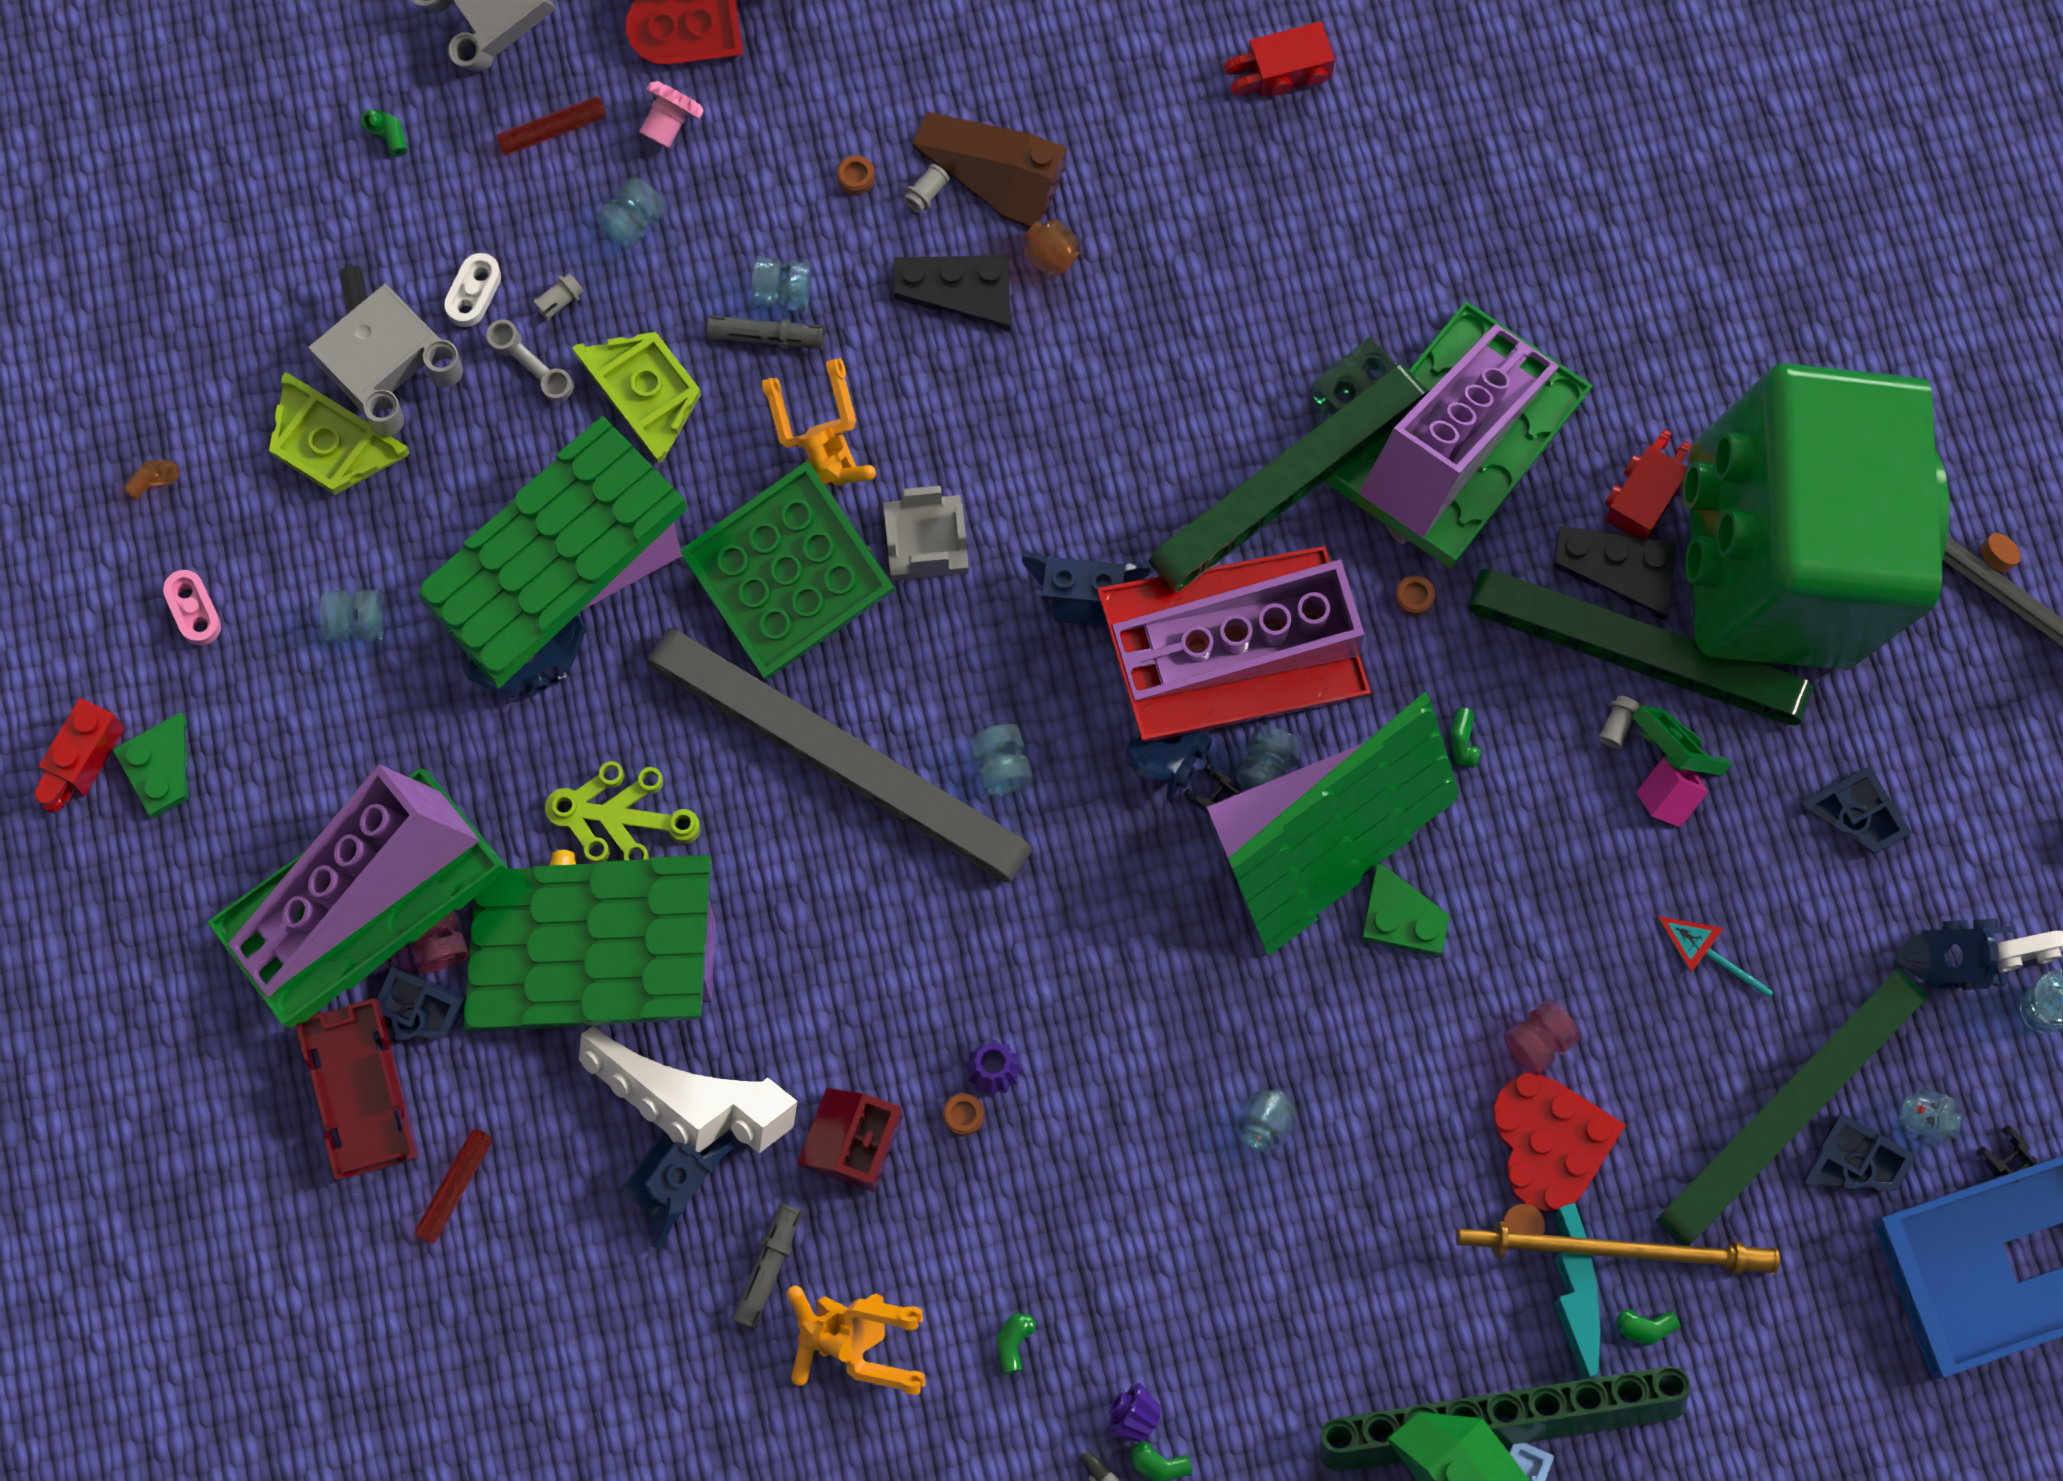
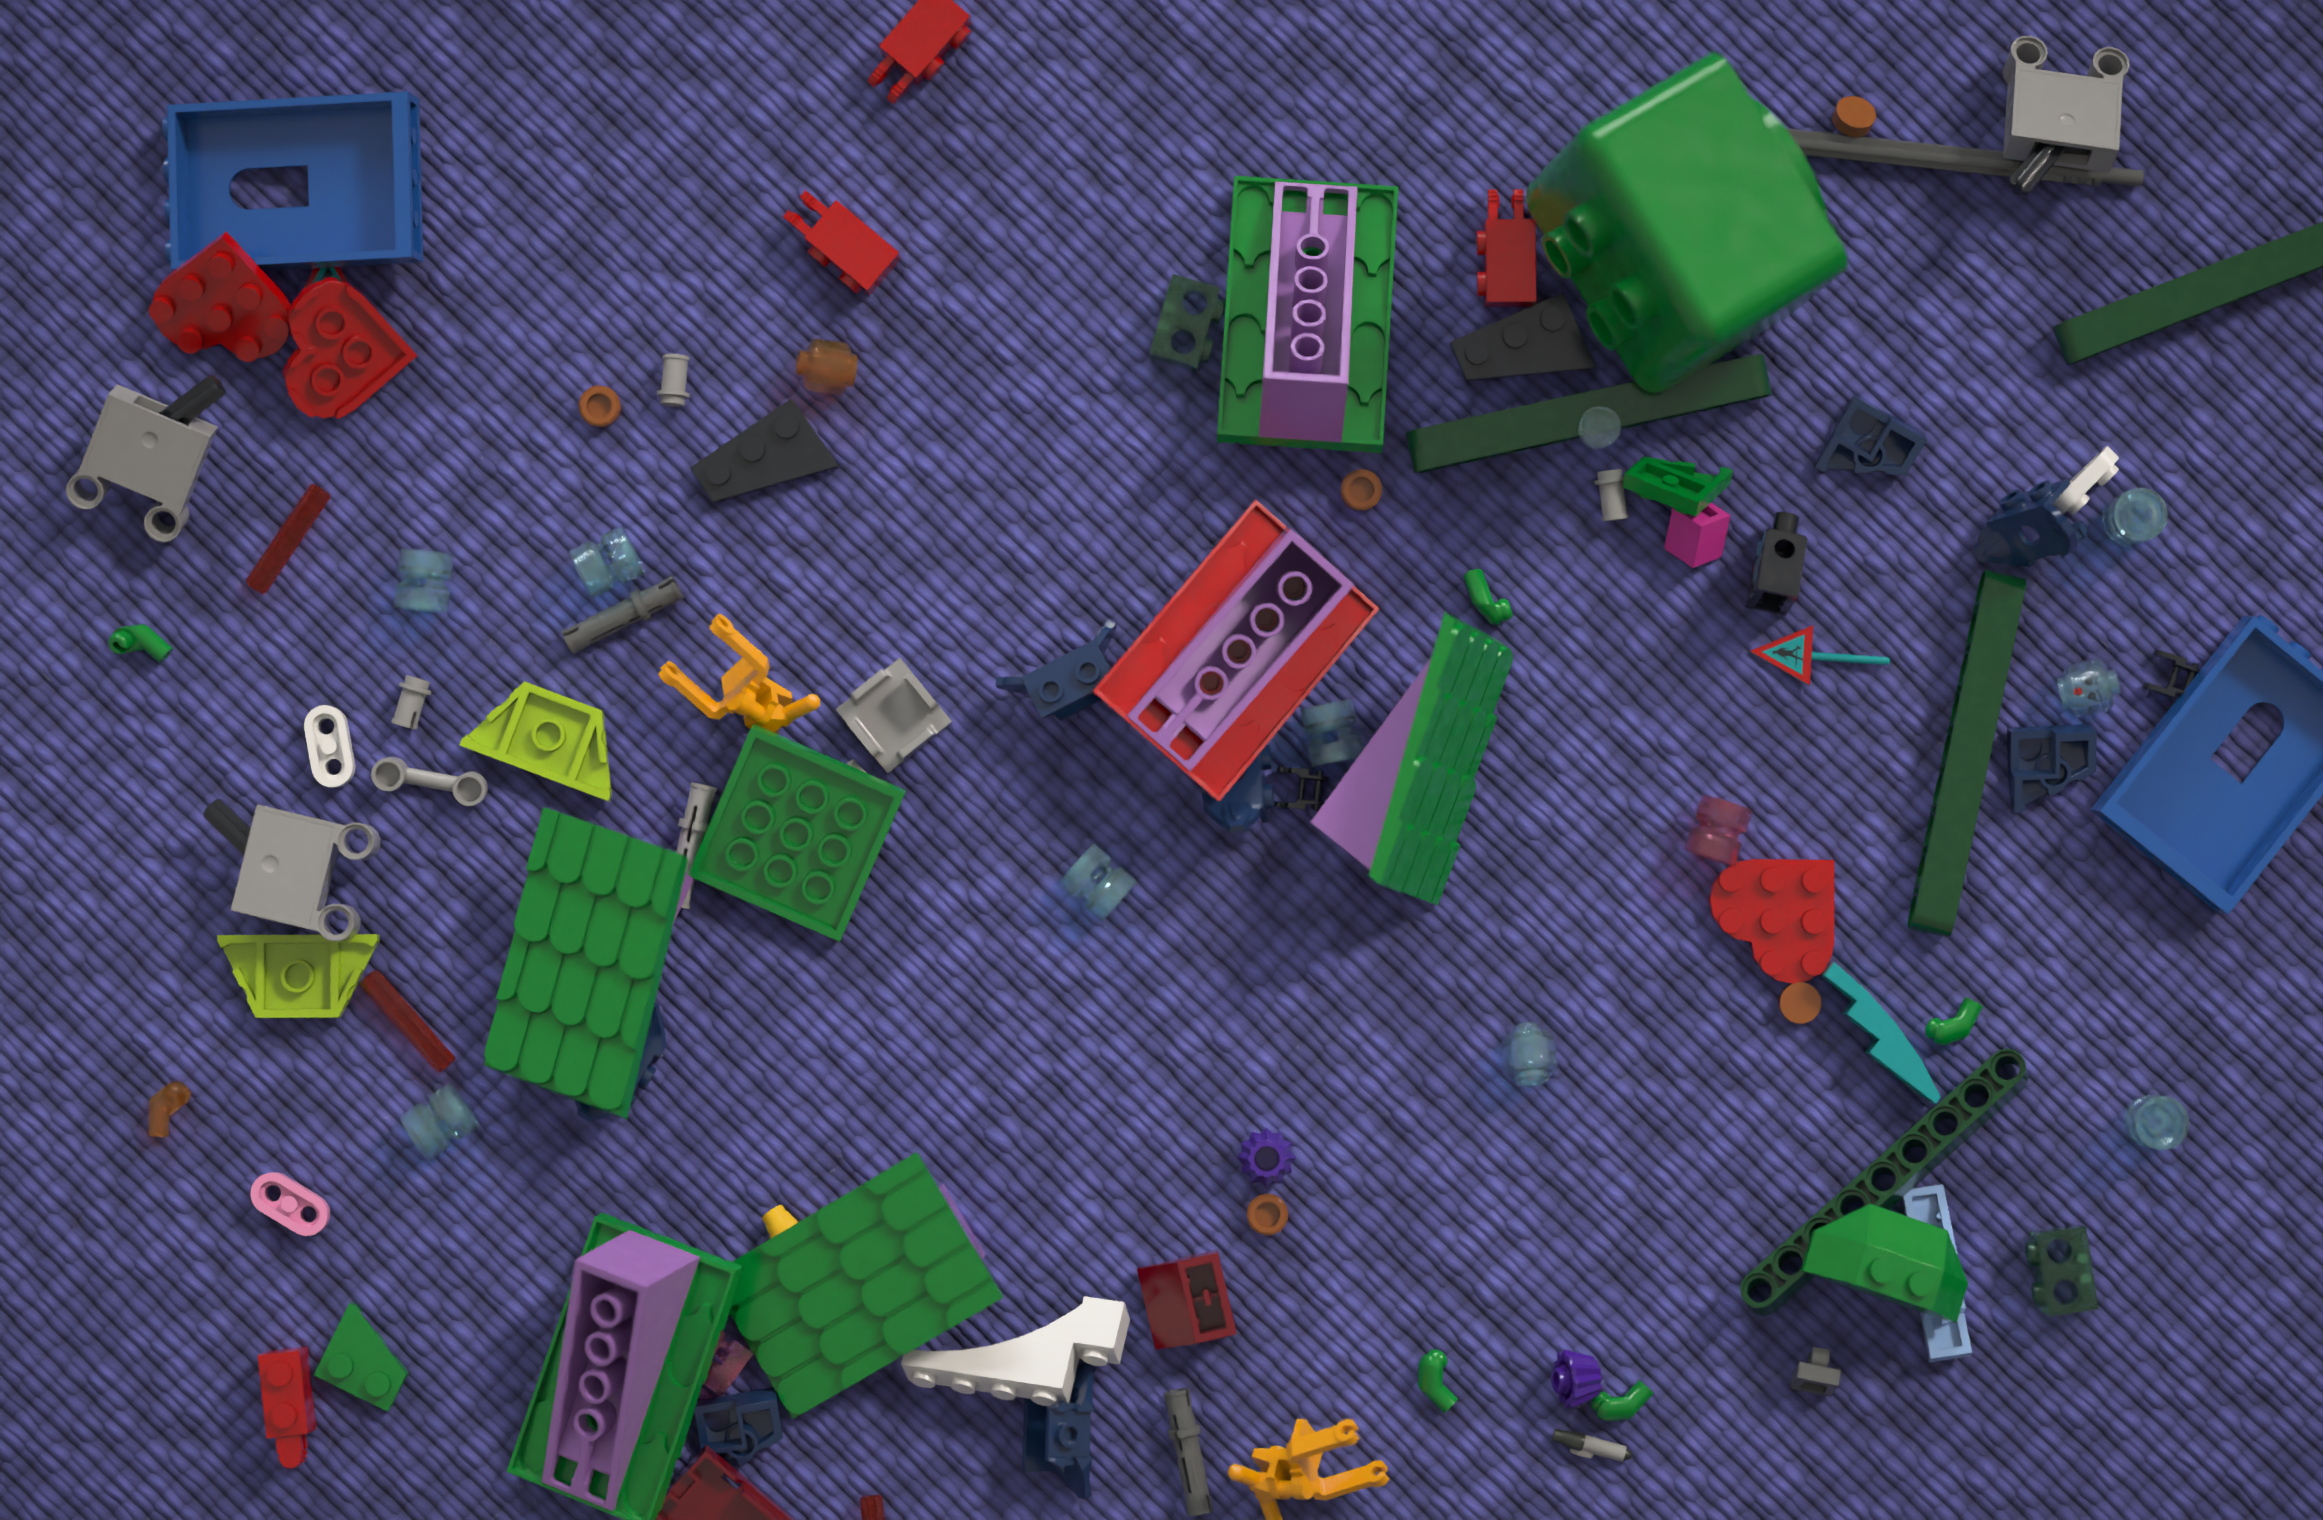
camera: 30 degrees left, 15 degrees up
(383, 529) = (407, 1021): none -> clear red axle
(615, 813) = (792, 1147): lime plant -> none
(668, 113) = (390, 461): bright pink gear -> none
(709, 517) = (694, 826): none -> light grey pin
(839, 755) = (950, 968): dark grey beam -> none
(1001, 165) = (728, 315): reddish brown wedge -> none
(1128, 170) = (846, 244): none -> red hinge
(1287, 478) = (1191, 467): dark green beam -> none
(1403, 916) = (1531, 794): green wing -> none
(1642, 655) = (1599, 427): none -> clear light blue tile
(1721, 857) = (1777, 579): none -> black torso
(1733, 1257) = (1993, 919): pearl gold bar -> none

